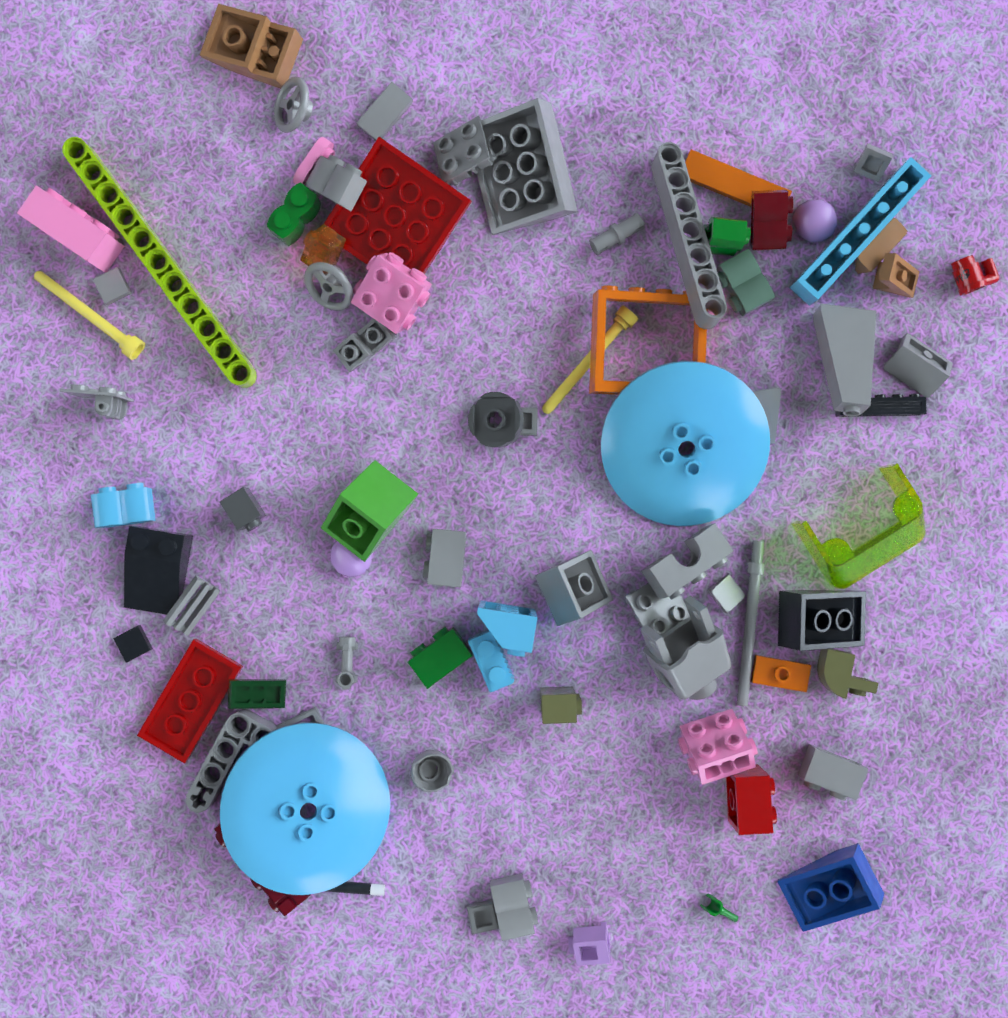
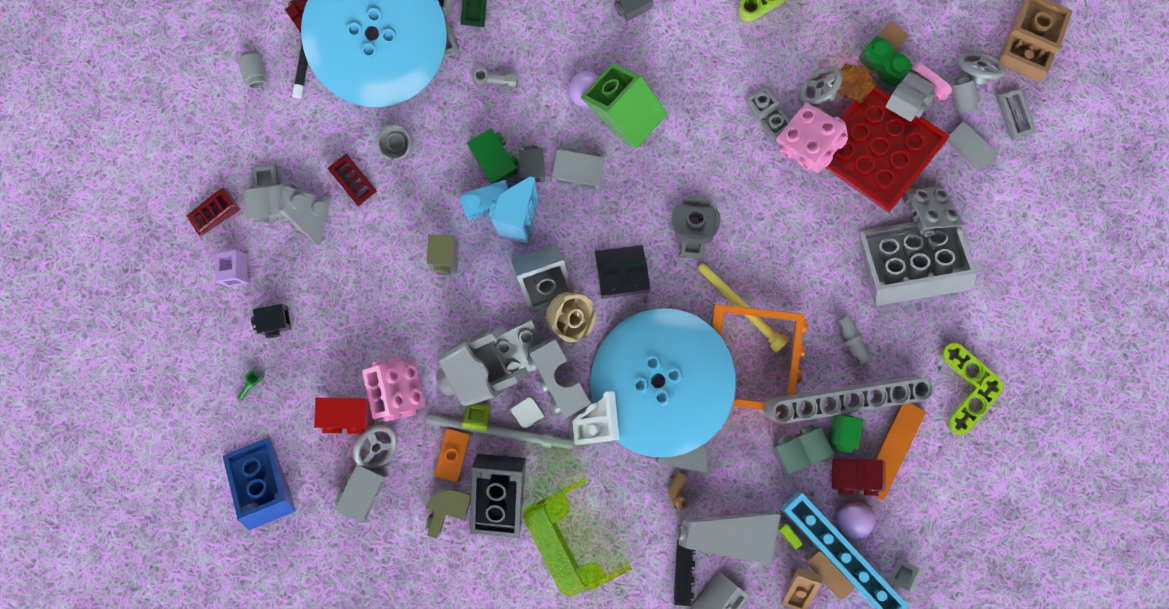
camera: 90 degrees right, 5 degrees down
(261, 208) = (894, 35): none -> medium nougat tile
(326, 122) = (965, 94): none -> light grey brick
(347, 73) = (1008, 118): none -> light grey tile
(357, 945) = (252, 69): none -> light grey brick
(444, 611) = (532, 163): none -> dark grey brick
(484, 823) = (340, 163): none -> dark red slope
(513, 955) = (232, 208): none -> dark red slope
(521, 866) = (305, 211): none -> light grey wing
(560, 498) = (622, 272): none -> black slope
(618, 553) = (570, 316): none -> tan cylinder
(648, 892) = (271, 320): none -> black brick
(655, 92) = (978, 383): none -> lime beam
(735, 513) = (598, 422): none -> white wing
(739, 649) = (476, 417): none -> lime tile
(779, 764) = (373, 445): none -> light grey piece
(801, 420) = (676, 492): none -> medium nougat arm
(840, 292) = (790, 536): none -> lime tile

